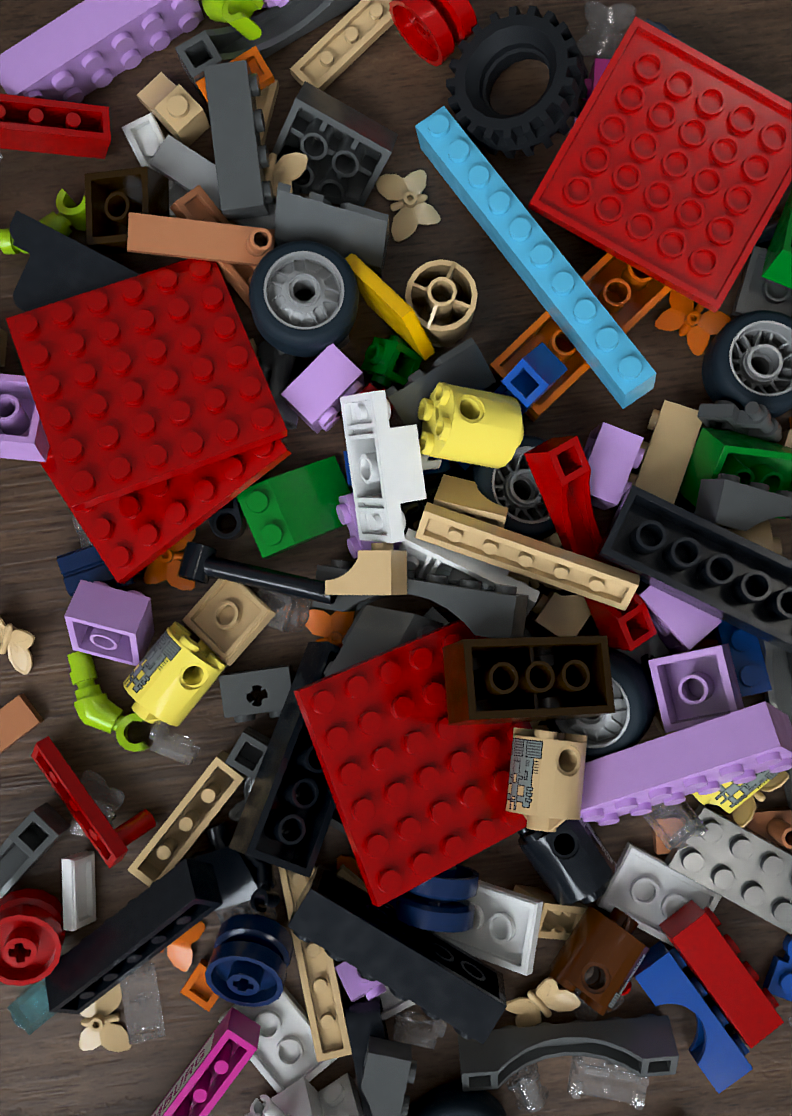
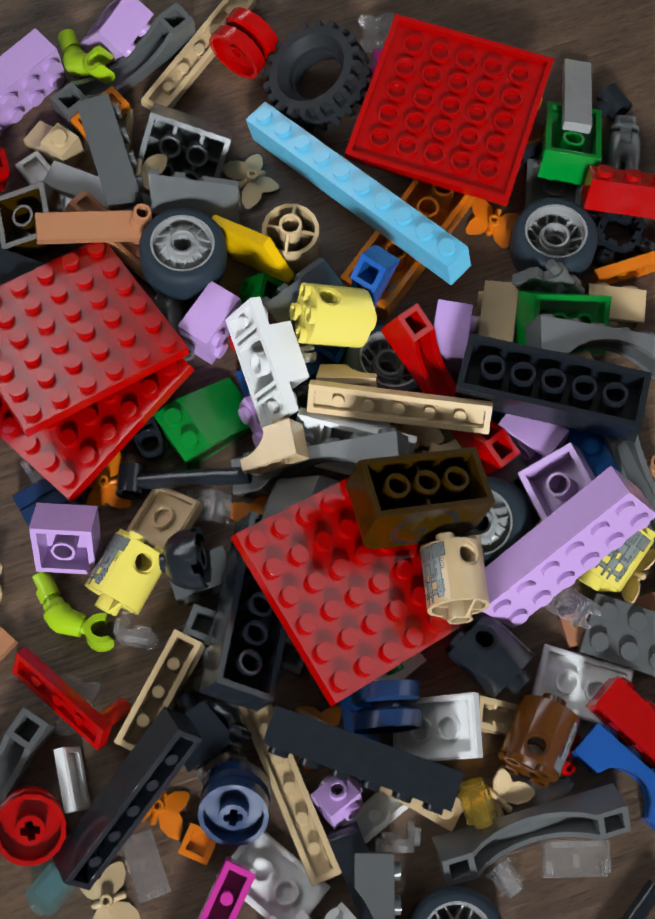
camera: 15 degrees left, 15 degrees down
(243, 684) = (186, 559): none -> black cylinder
(517, 1019) = (477, 803): none -> clear yellow brick

